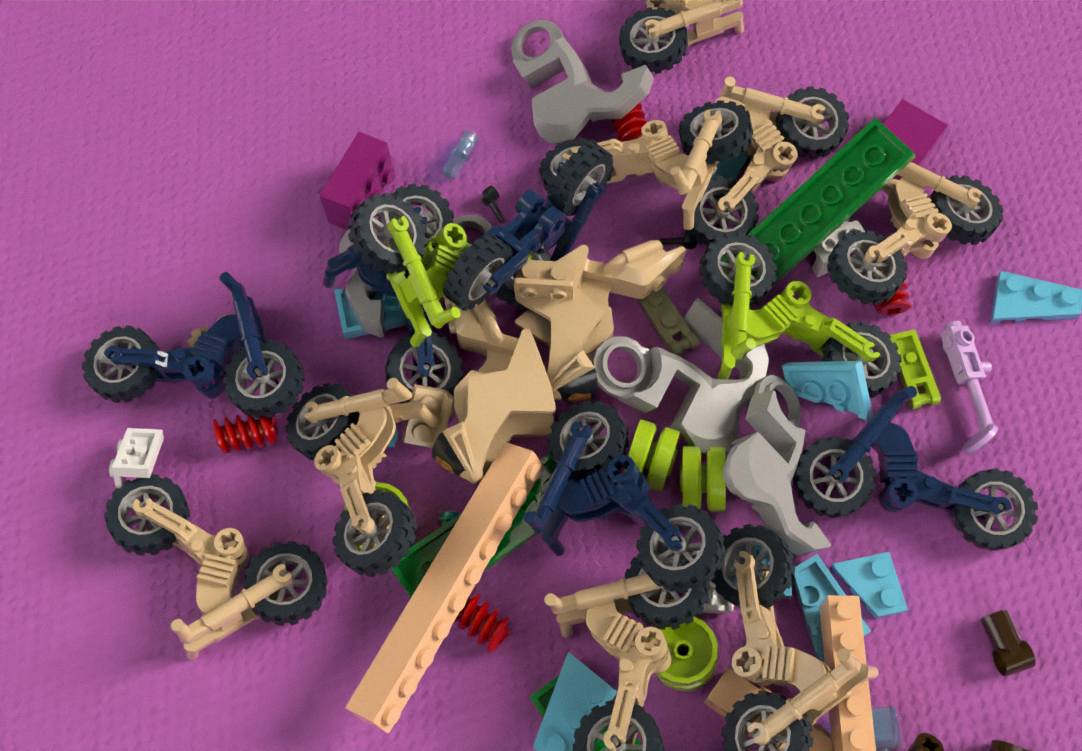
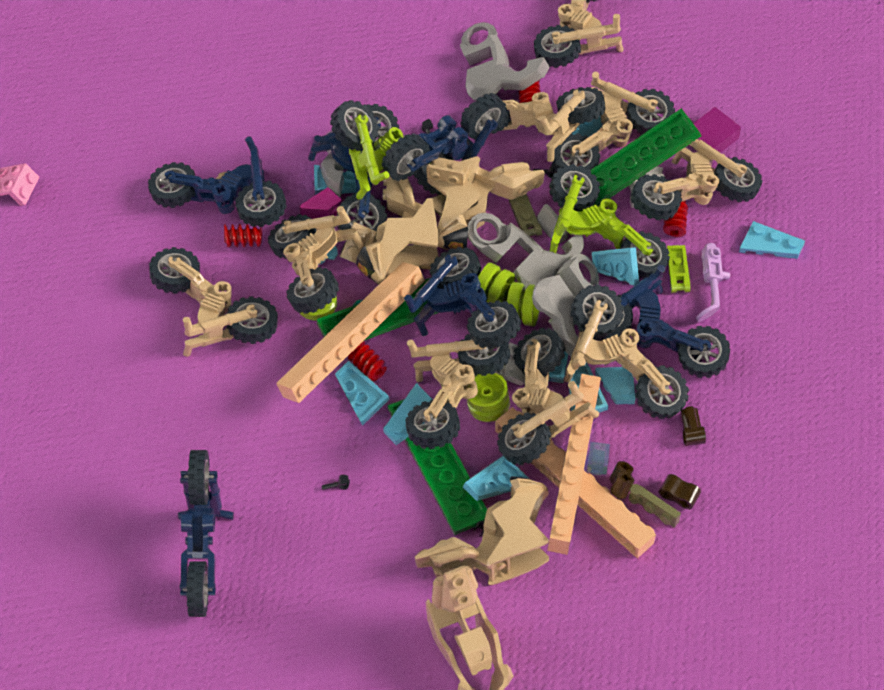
camera: 10 degrees right, 10 degrees down
(136, 454) = (173, 235): white bracket -> none
(358, 176) = (347, 88): magenta brick -> none
(359, 358) = (321, 205): none -> dark pink slope
(460, 154) = (412, 98): clear light blue axle -> none
(482, 677) = (361, 392): none -> medium azure wing
(933, 579) = (652, 380): none -> piece

